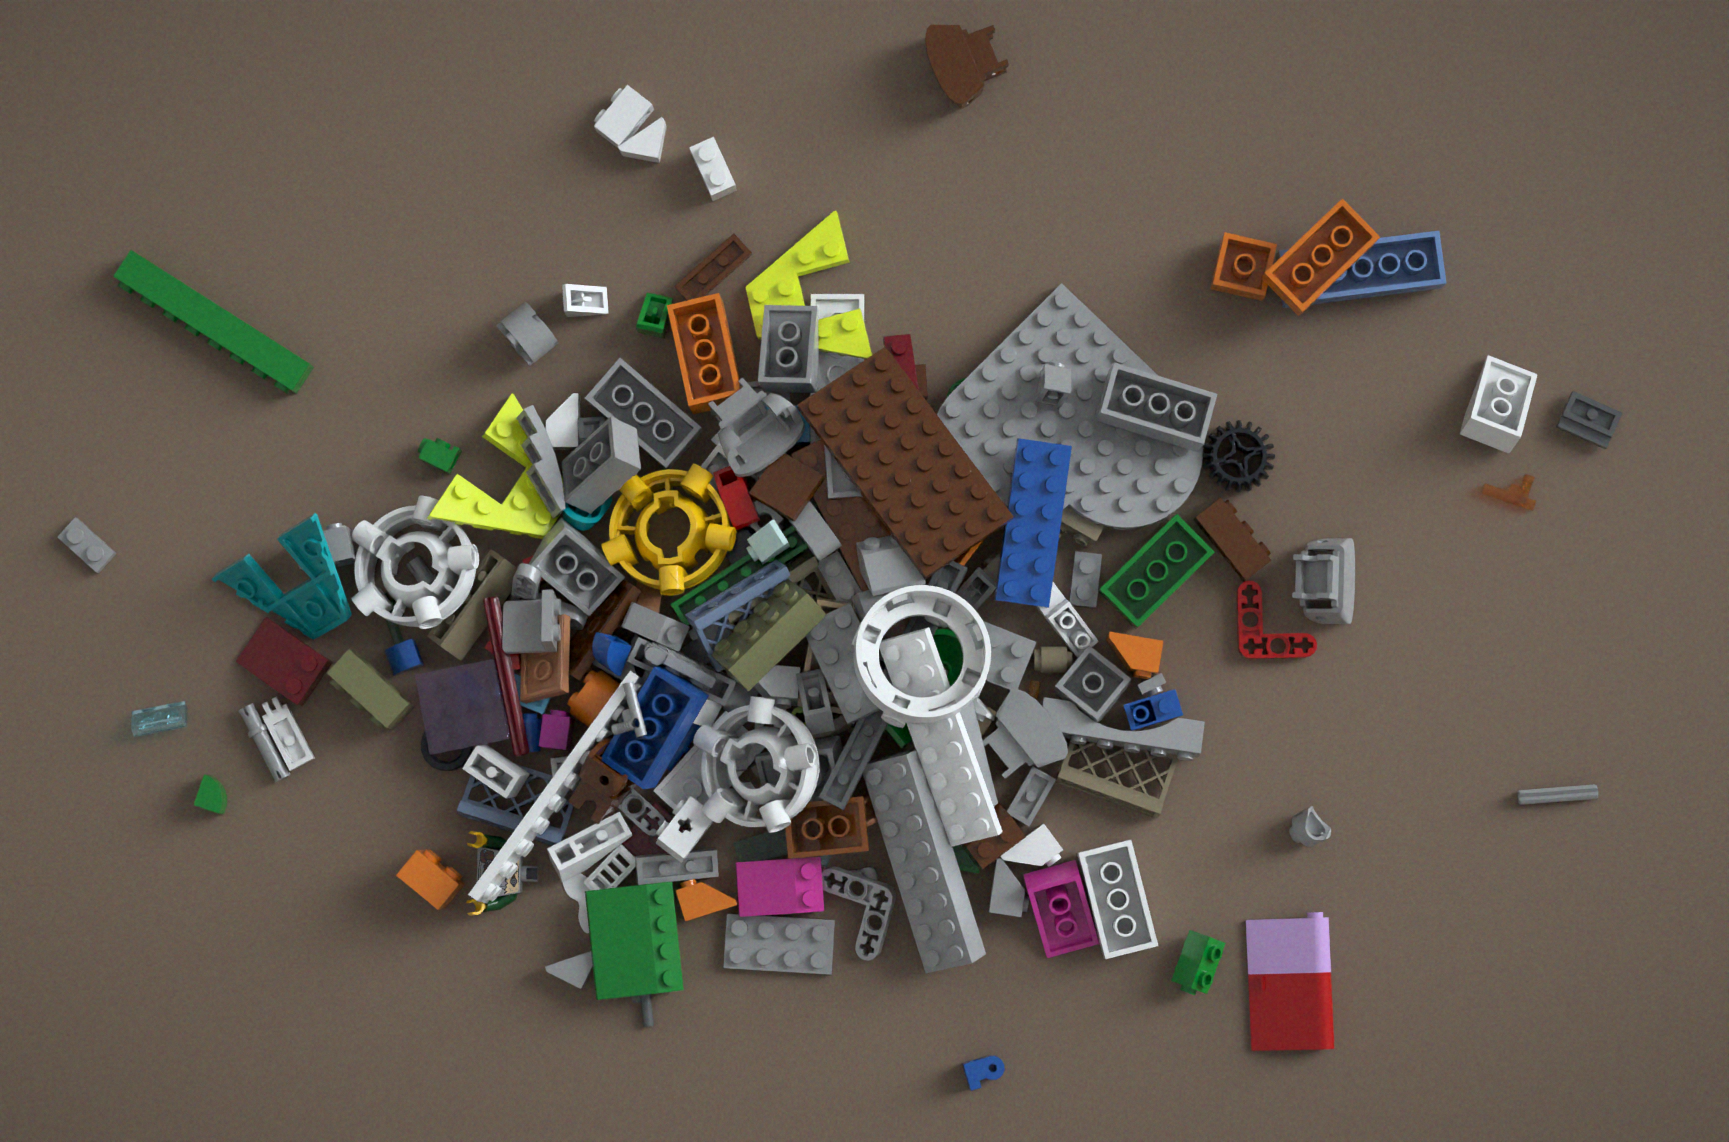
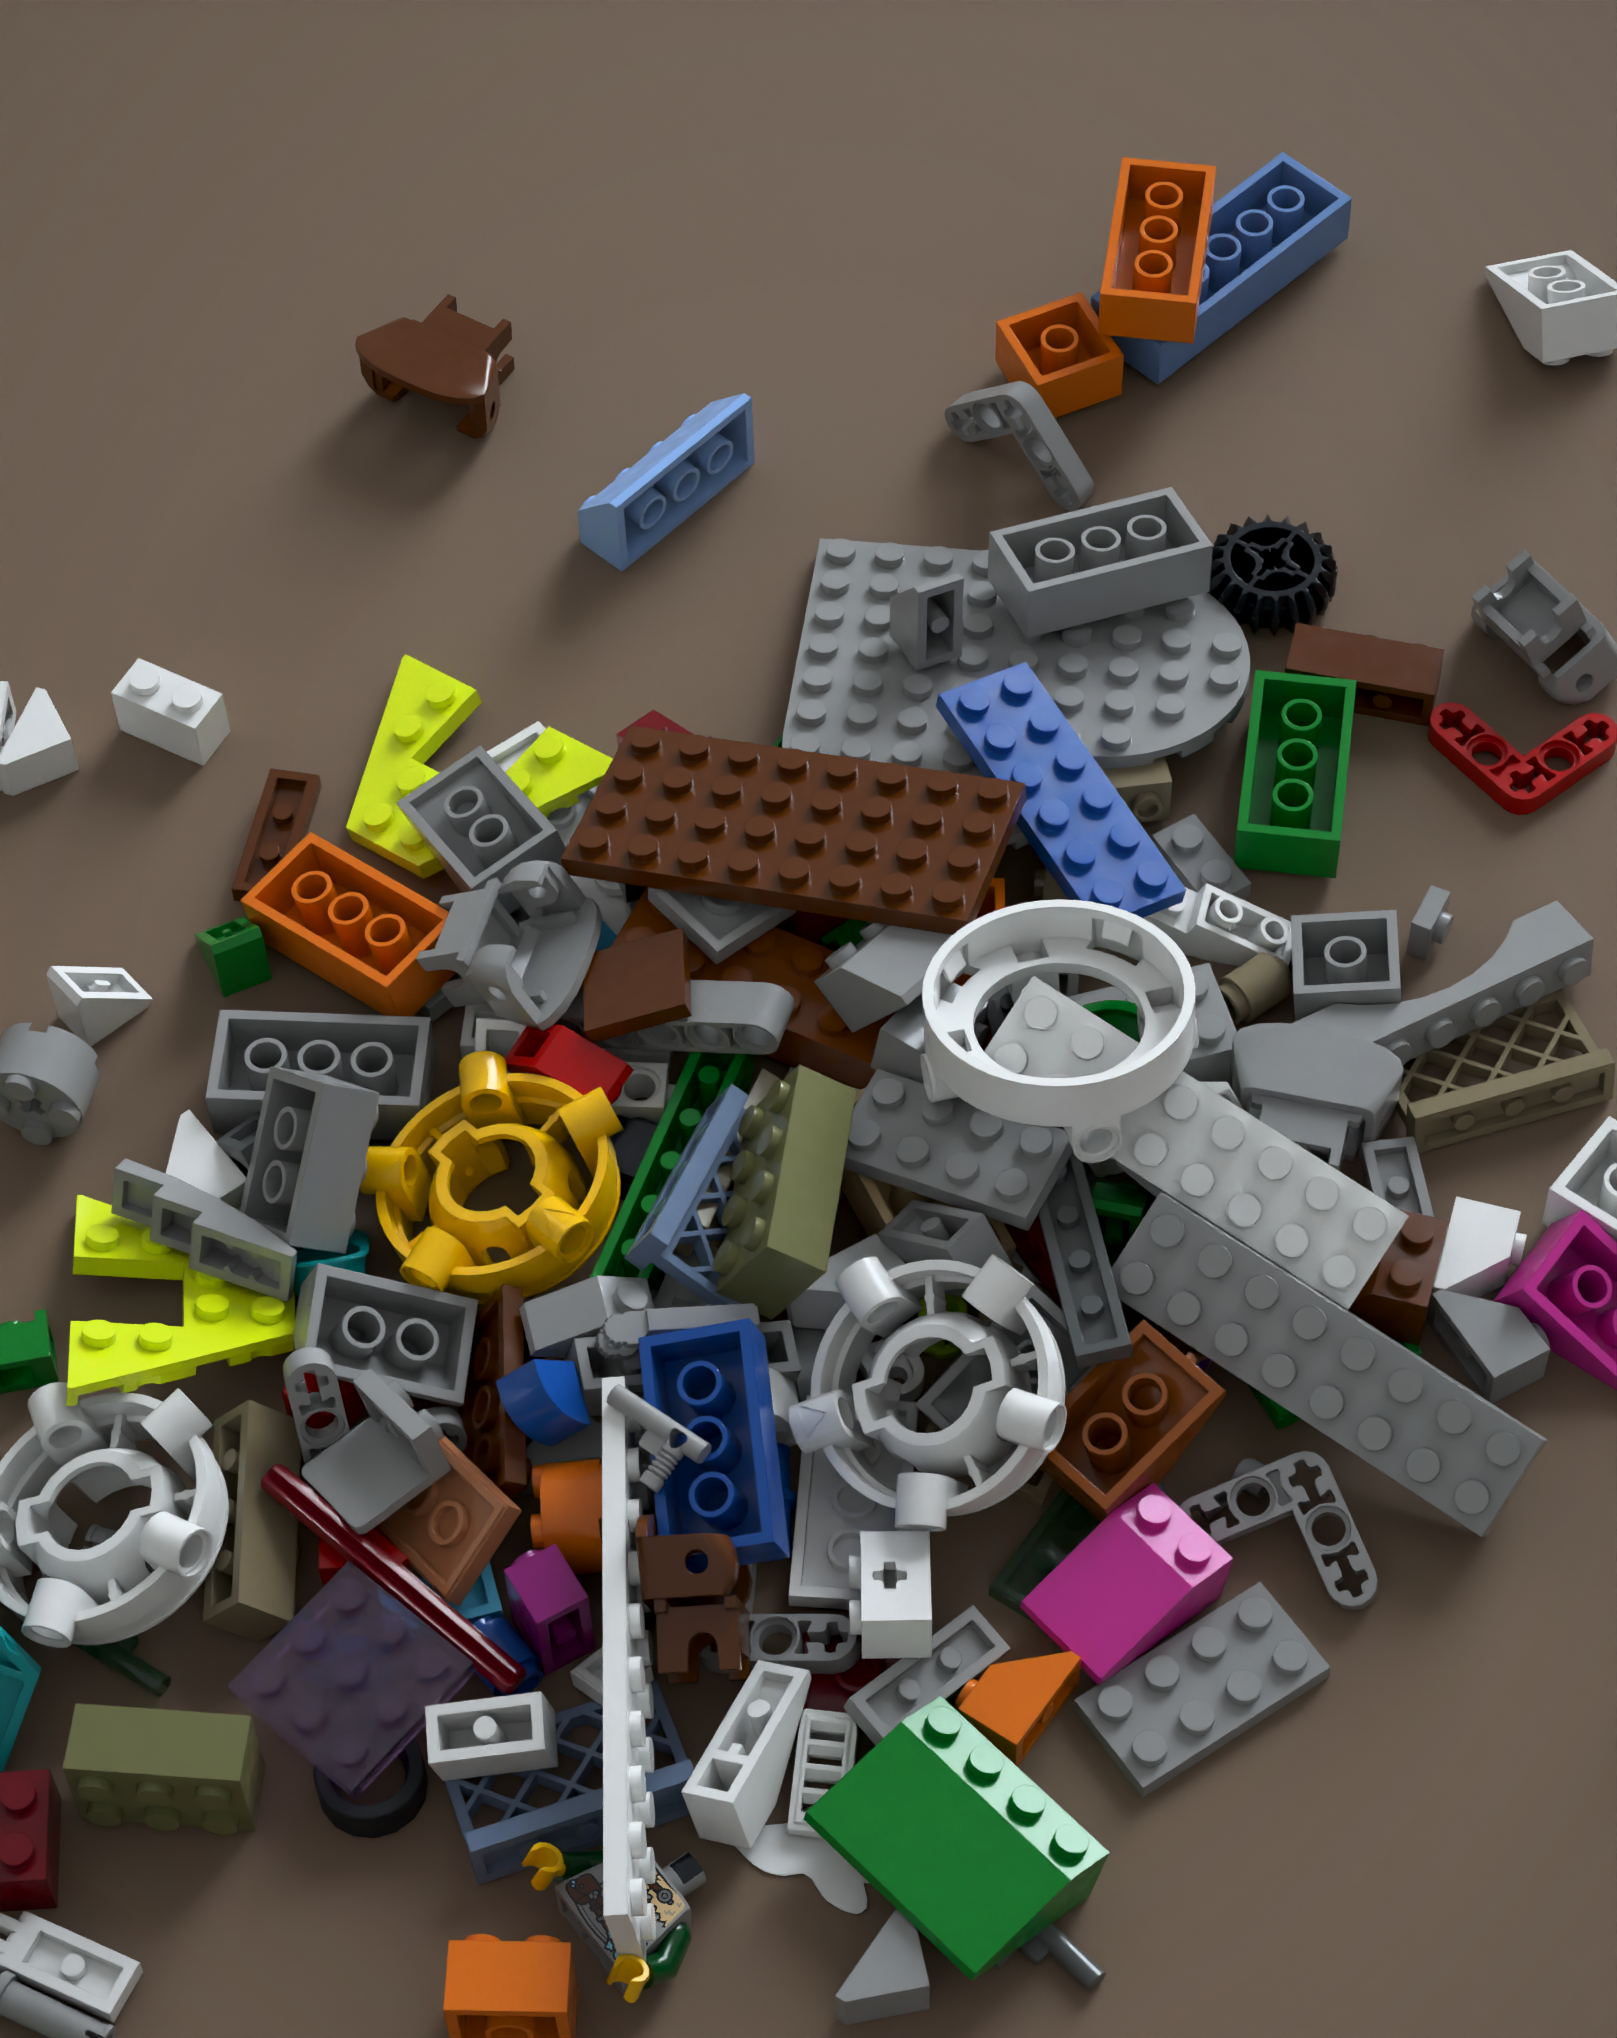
camera: 40 degrees left, 30 degrees down
(404, 657) = (188, 1682): blue brick -> none
(767, 543) = (674, 1070): light aqua slope -> none
(1016, 202) = (669, 482): none -> light blue slope
(1137, 653) = (1368, 873): orange slope -> none
(1153, 710) = (1468, 936): blue slope -> none
(1190, 301) = (1021, 411): none -> light grey beam

